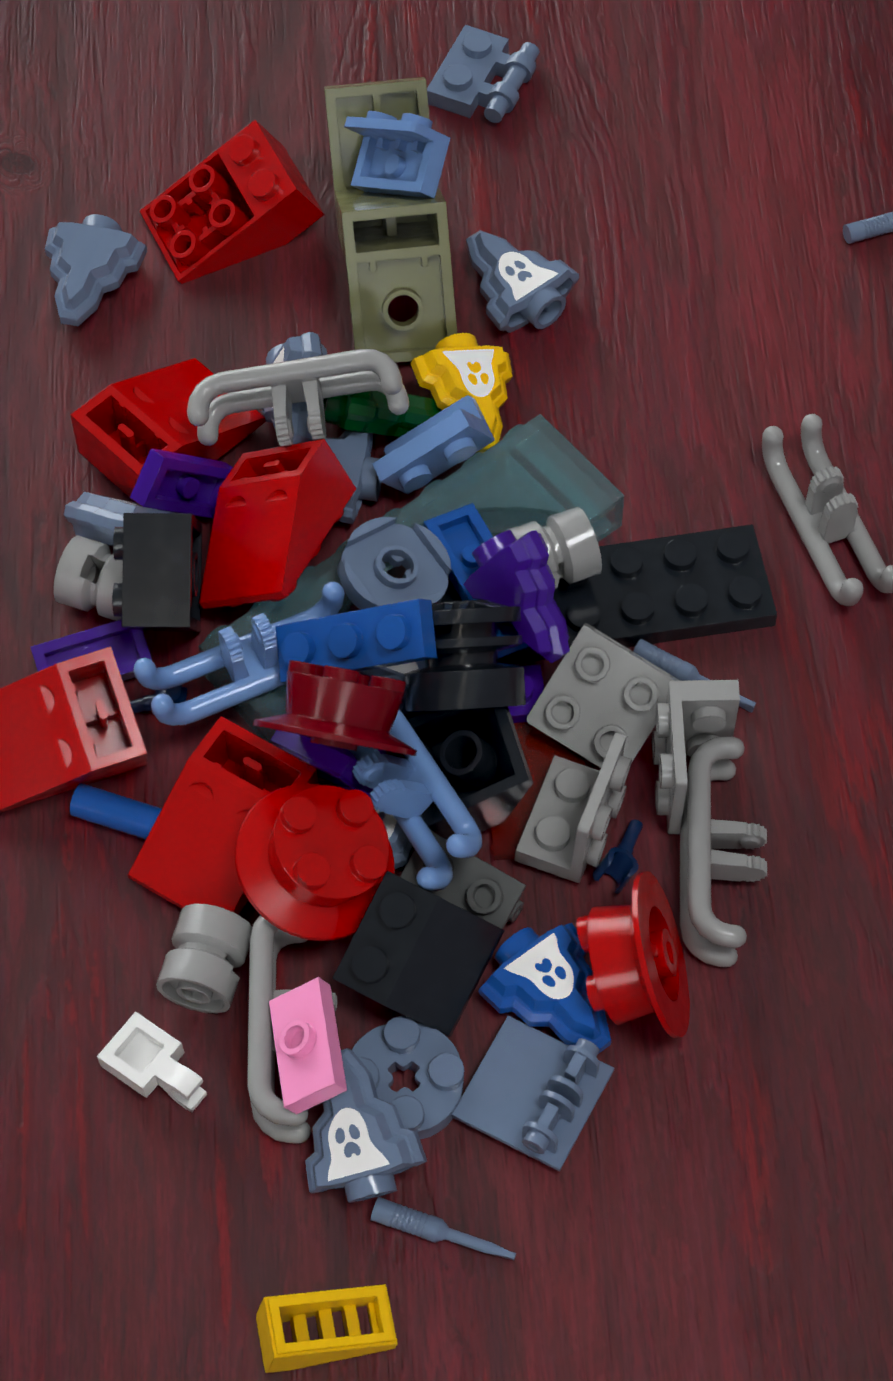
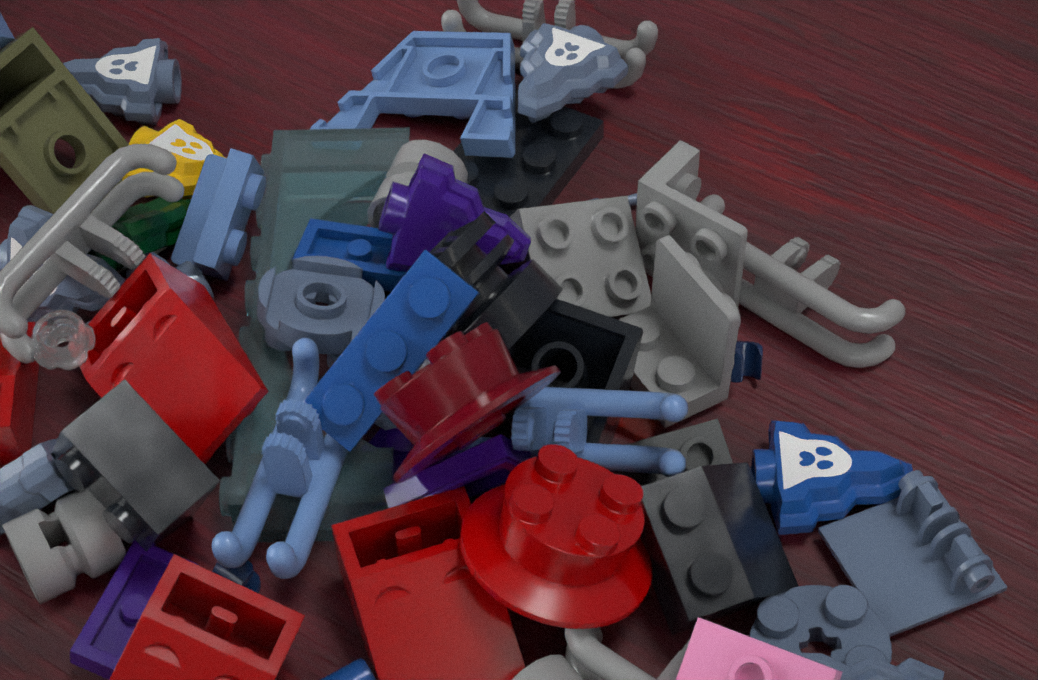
camera: 50 degrees left, 10 degrees down
(180, 483) = (44, 404): dark purple plate -> none
(222, 437) = (57, 328): none -> clear plate
(637, 959) = (867, 380): red piece -> none
(713, 473) = (443, 76): none -> medium blue wing
(783, 549) = (565, 69): none -> sand blue rock

